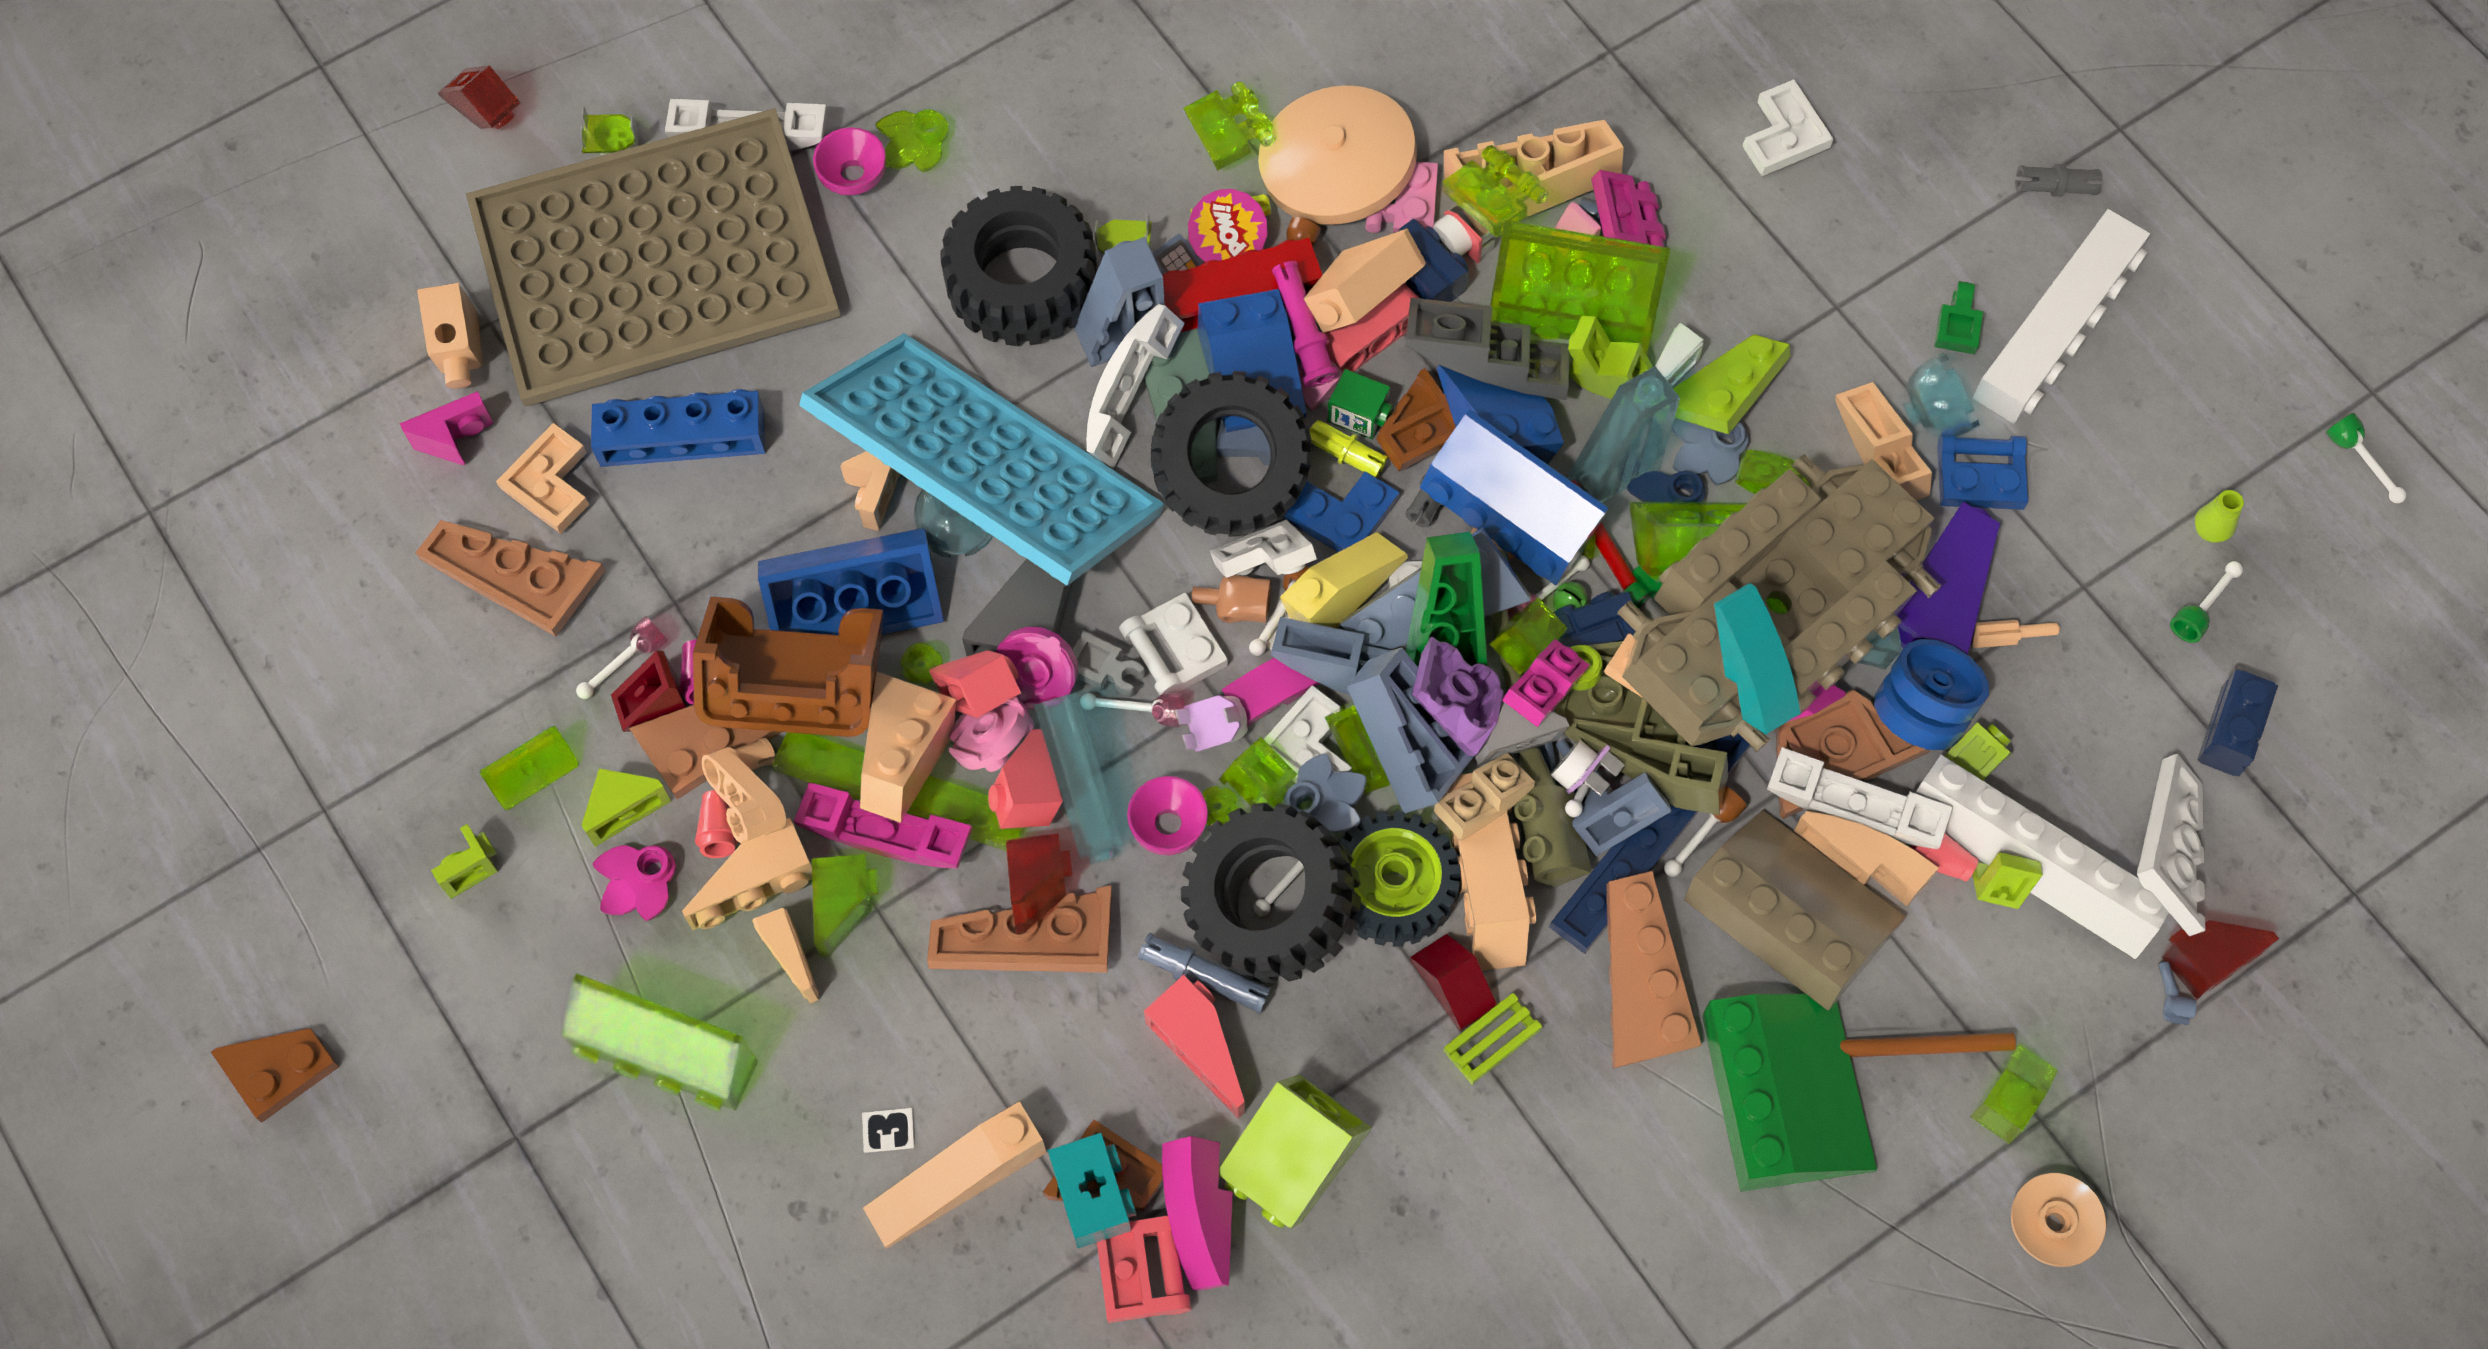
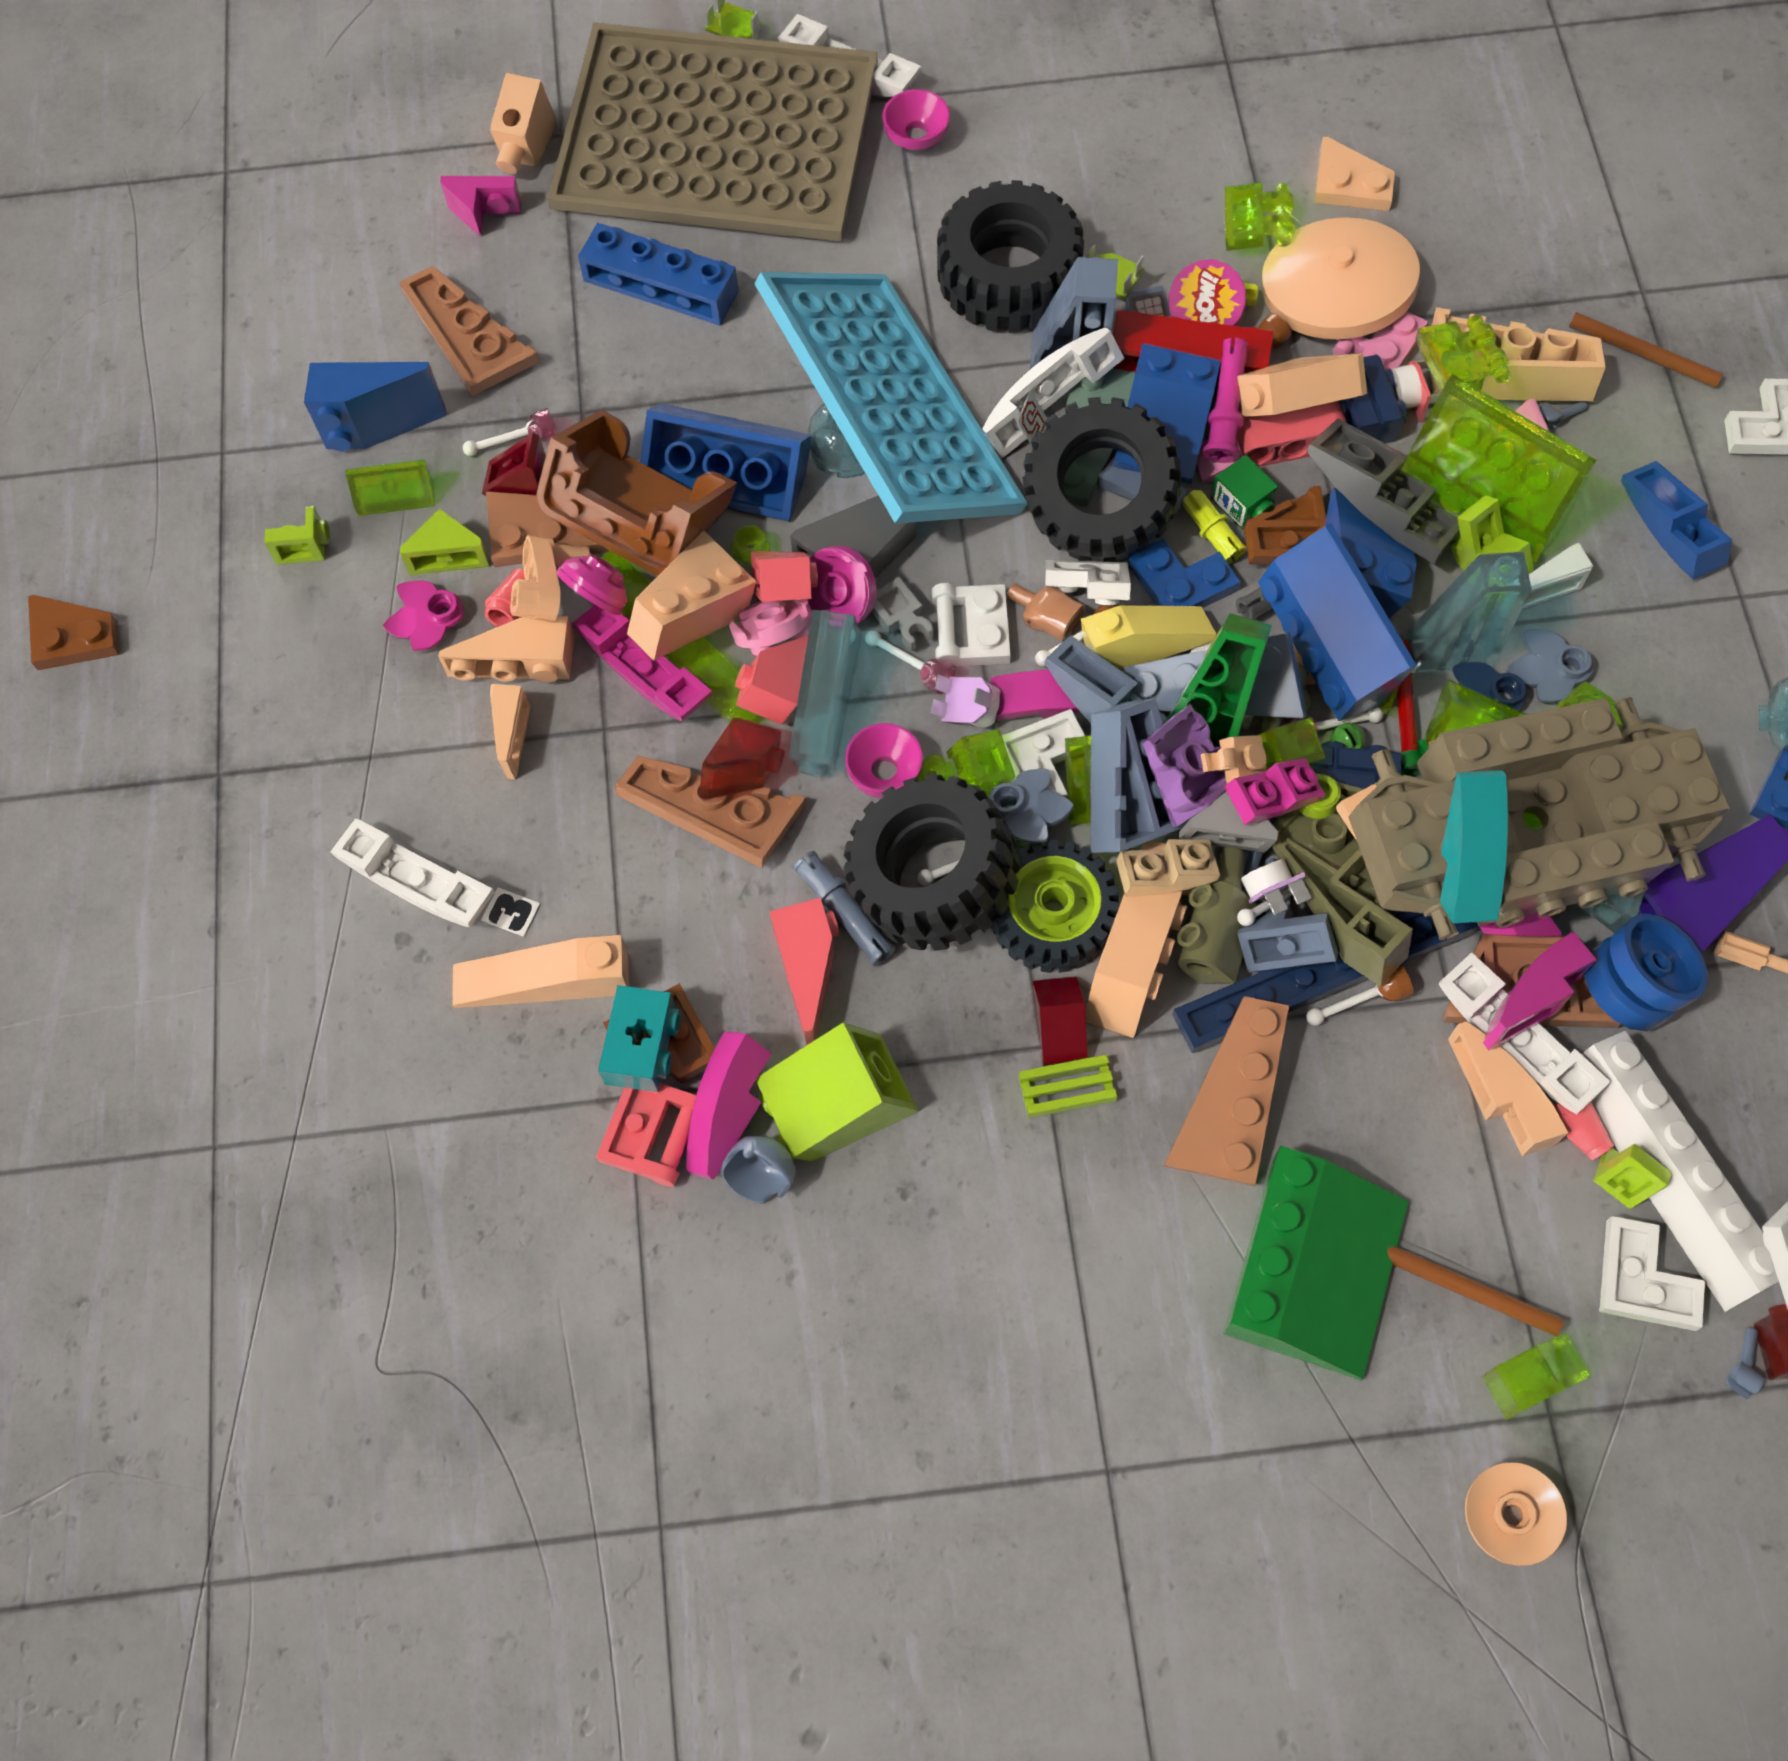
camera: 30 degrees right, 0 degrees up
(463, 691) = (370, 401): none -> blue slope
(538, 483) = (527, 265): light nougat plate -> none
(657, 1044) = (361, 749): clear neon green slope -> none
(777, 1143) = (411, 876): none -> white slope
(802, 771) = (595, 581): none -> dark pink piece
(840, 898) = (574, 703): clear neon green slope -> none
(876, 487) = (789, 389): light nougat slope -> none
(909, 140) = (981, 124): clear neon green plate -> none
(1127, 420) = (1032, 417): none -> white sticker
(1263, 1253) = (758, 1168): none -> sand blue hair
(1294, 48) = (1352, 178): none -> light nougat wing
(1501, 667) = (1237, 757): none -> light nougat plate
(1627, 209) = (1579, 422): dark pink plate -> none
(1641, 107) = (1646, 350): none -> dark orange bar
(1730, 384) = (1597, 618): lime wing -> none
(1749, 260) = (1677, 519): none -> blue slope
(1793, 908) = (1408, 1103): dark tan slope -> none
(1854, 754) = (1540, 990): none -> dark pink slope
(1884, 437) = (1724, 729): light nougat slope -> none
(1980, 750) = (1669, 1048): lime bracket -> none
(2052, 972) = (1634, 1286): none -> white plate

